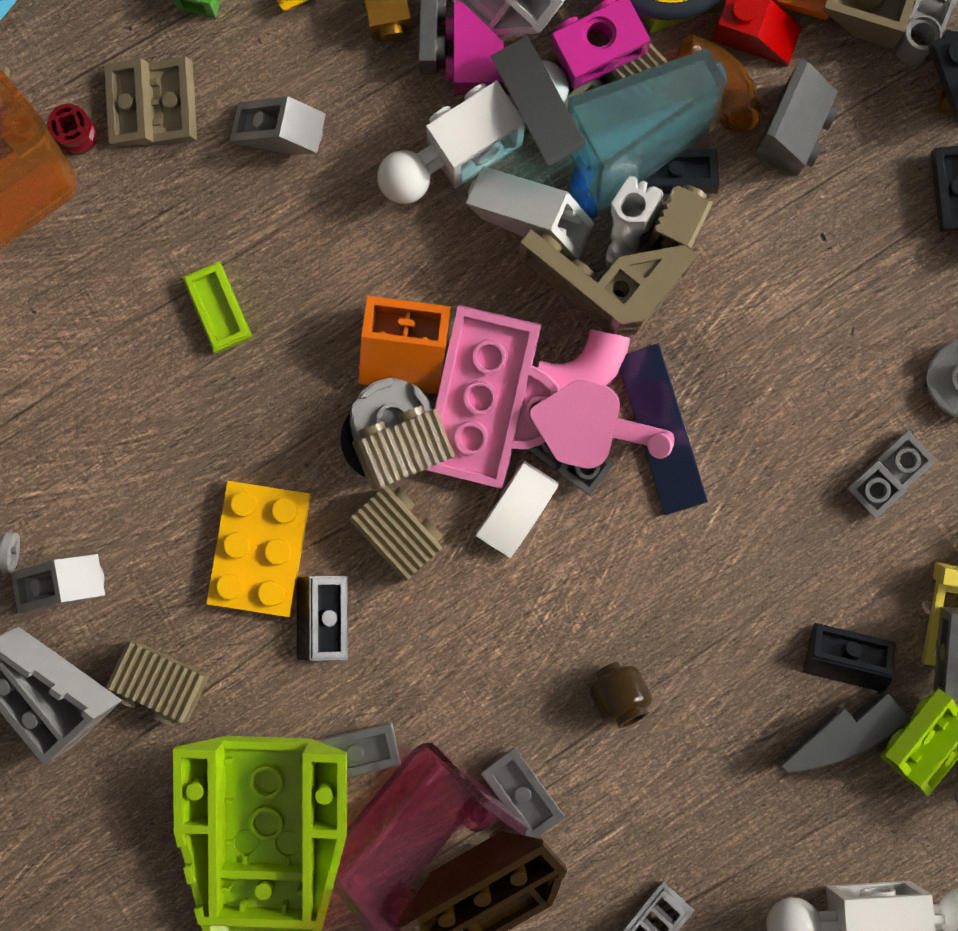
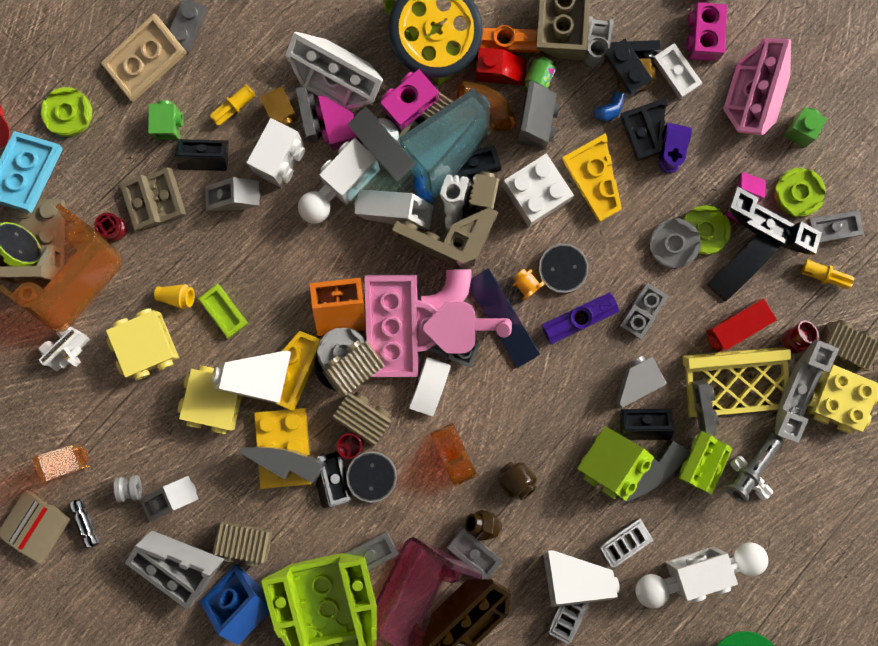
camera: 15 degrees left, 0 degrees up
(75, 327) = (141, 344): none -> light yellow brick
(122, 779) = (235, 605): none -> blue slope
(149, 264) = (177, 295): none -> yellow cone
(165, 441) = (207, 405): none -> light yellow brick
(241, 421) = (253, 377): none -> white slope
(246, 51) = (202, 154): none -> black slope
(257, 569) = (285, 461): none -> dark grey slope
(299, 432) = (301, 362): none -> yellow wing
(360, 569) = (346, 445): none -> dark red wheel
(365, 76) = (276, 153): none -> white brick
(388, 630) = (371, 476): none -> black tile
(528, 627) = (453, 454): none -> clear orange slope
(547, 752) = (483, 525): none -> dark brown rock
(677, 879) = (577, 581): none -> white slope
(713, 383) = (526, 283): none -> light orange brick
(758, 859) = (631, 550): none -> flat silver slope
(768, 238) = (537, 190): none -> white brick
(778, 374) = (563, 268): none -> black tile
(785, 707) = (615, 464): none -> lime brick
(810, 454) = (594, 311): none -> dark purple piece
(821, 49) = (541, 72): none -> bright green brick
(856, 584) = (639, 381): none -> light grey slope
(864, 239) = (594, 177): none -> yellow wing
(918, 140) = (610, 110): none -> blue arm

